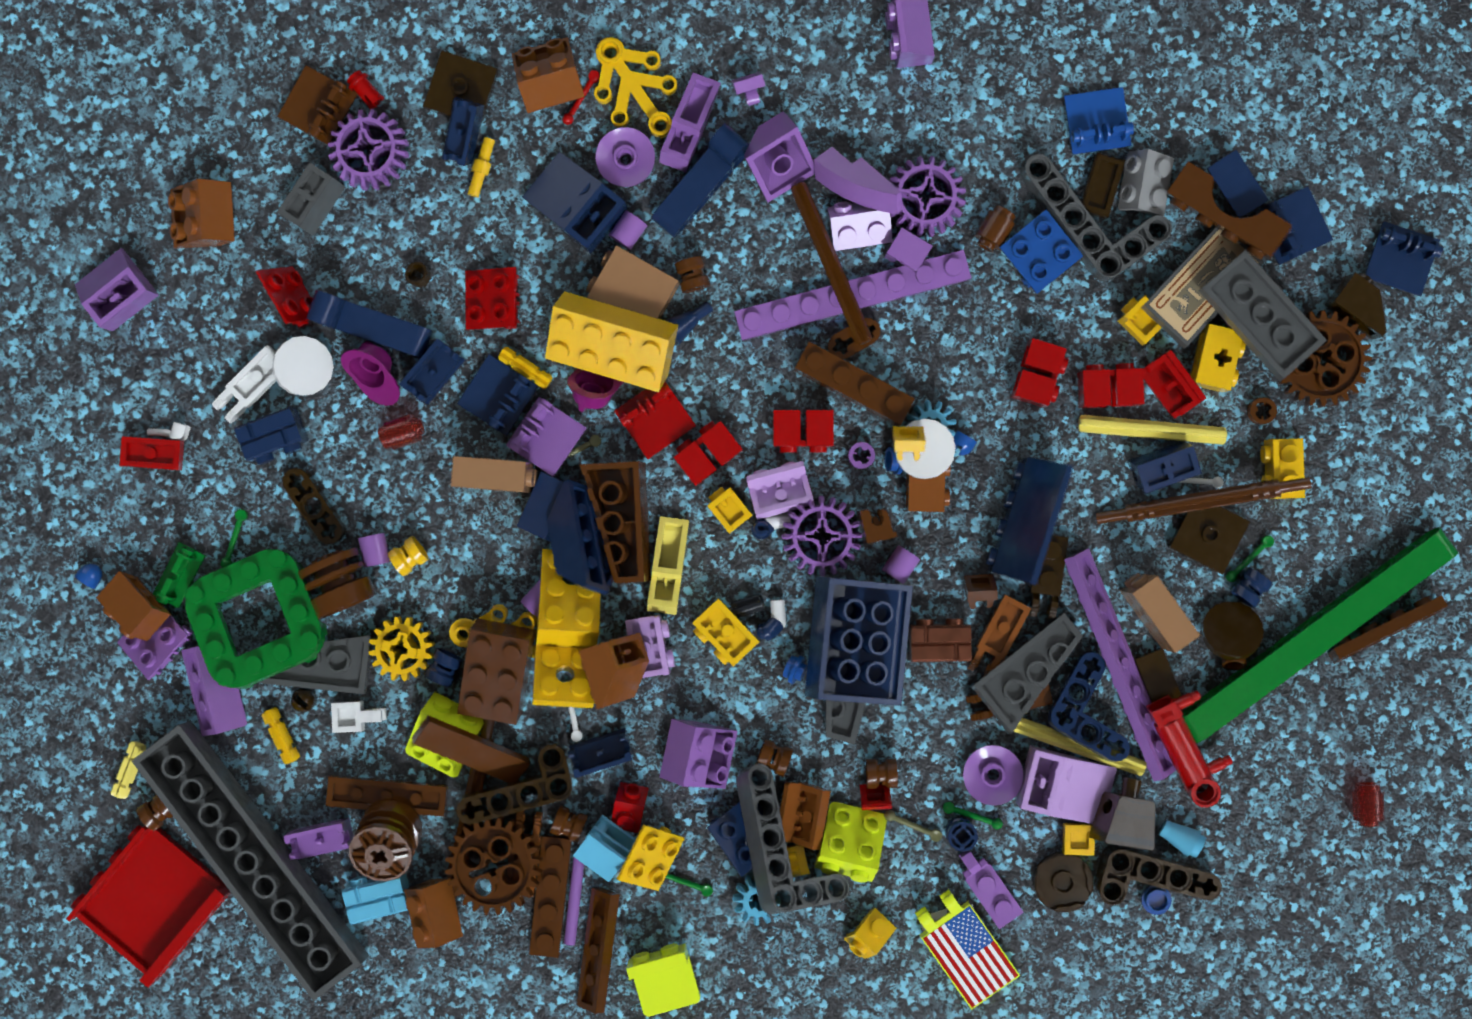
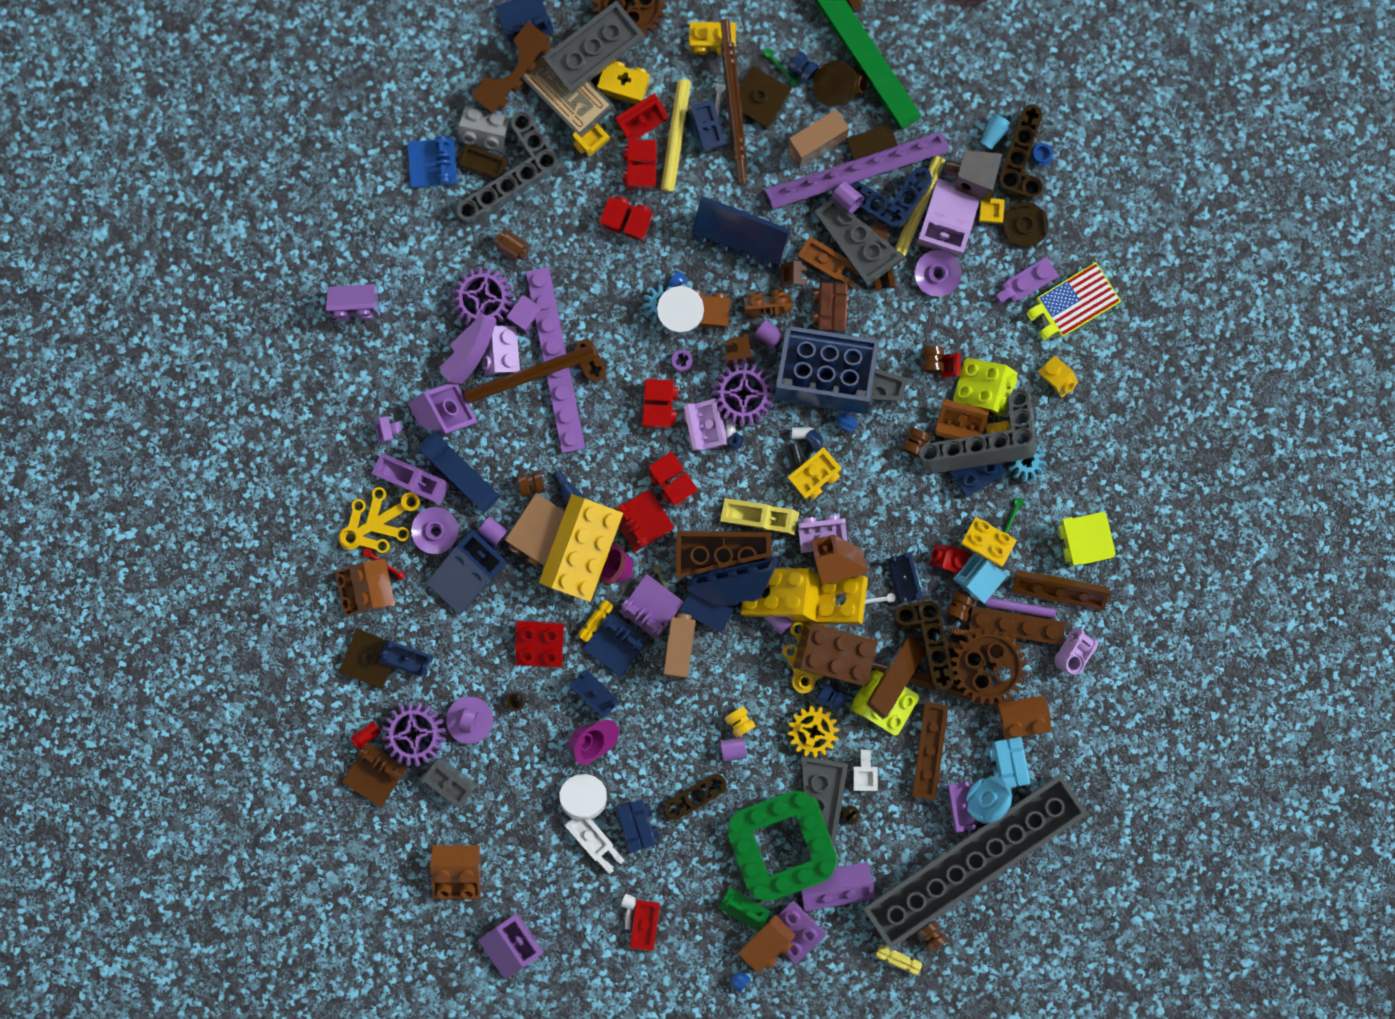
camera: 85 degrees left, 5 degrees down
(150, 901) = (1006, 947): red panel -> none
(240, 515) = (700, 857): green hinge -> none
(280, 735) = (878, 834): yellow axle -> none
(287, 293) = (518, 806): red hinge -> none
(324, 874) = (989, 799): none -> medium azure tile
(337, 582) = (758, 777): reddish brown wheel -> none
(368, 324) = (554, 739): dark blue beam -> none
(385, 840) = (964, 749): reddish brown wheel -> none
(392, 218) = (469, 720): none -> medium lavender tile
(401, 432) = (640, 721): clear red brick -> none
(481, 167) = (433, 646): yellow bar -> none
(517, 971) = (1076, 650): none -> lavender piece
(698, 754) = (910, 501): medium lavender slope -> none
(728, 509) = (718, 466): yellow bracket -> none
(854, 384) = (626, 362): reddish brown brick -> none
(891, 462) = (688, 337): blue plate -> none
(908, 440) = (673, 320): yellow tile -> none
(934, 834) = (983, 321): olive hinge -> none
(945, 571) = (777, 299): none -> dark orange hinge
(949, 808) = (962, 308): green hinge -> none
(960, 828) = (980, 303): dark blue wheel -> none
(1041, 252) = (532, 211): blue hinge -> none
(1050, 577) = (788, 219): dark brown hinge -> none
(1084, 655) = (847, 197): none -> medium lavender beam
(1184, 750) = (924, 126): red piece -> none
(1237, 184) = (490, 59): dark blue hinge -> none
(1271, 412) = (668, 44): reddish brown bush -> none

